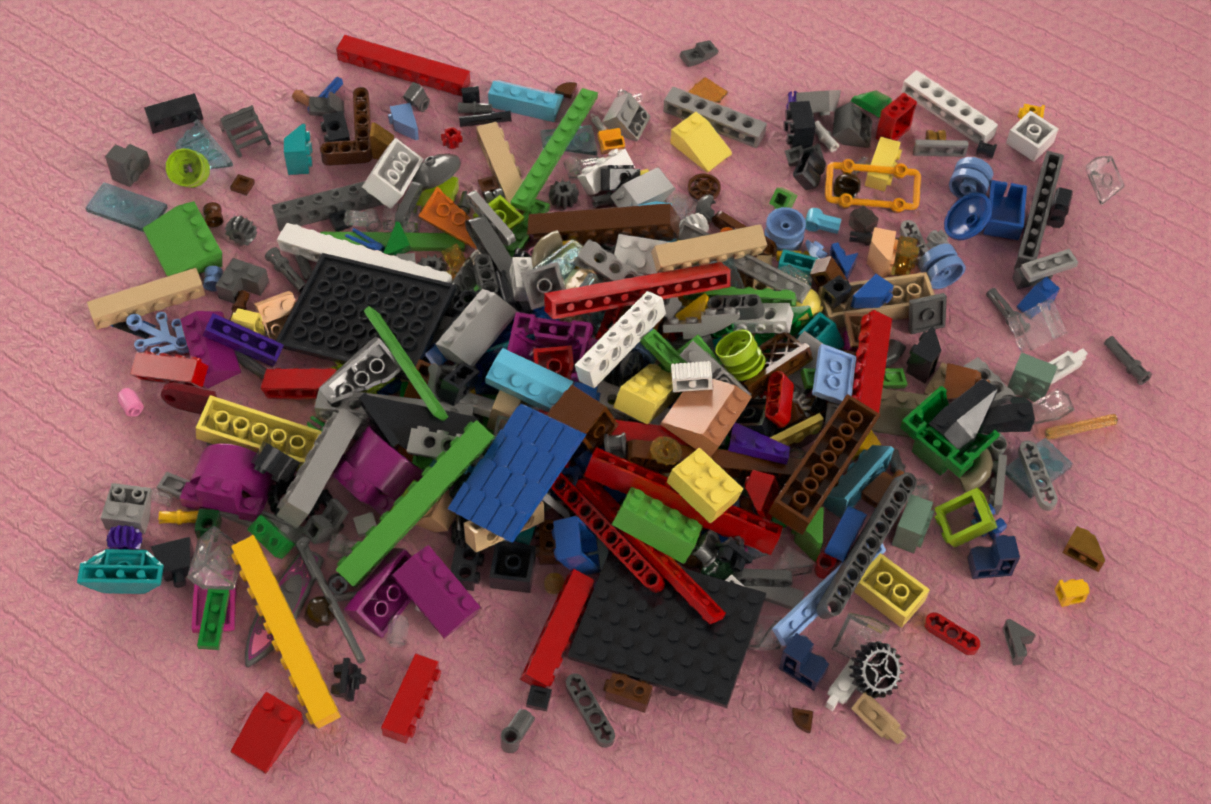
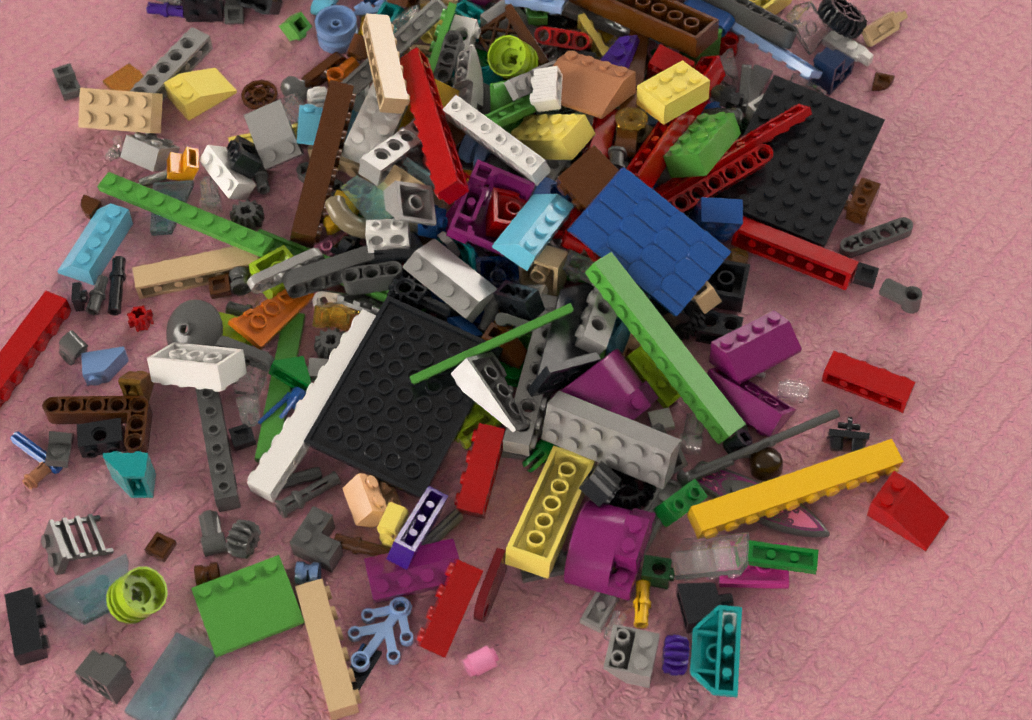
camera: 80 degrees left, 0 degrees up
(252, 212) = (212, 537): none -> dark grey piece
(658, 86) = (120, 110): none -> tan brick

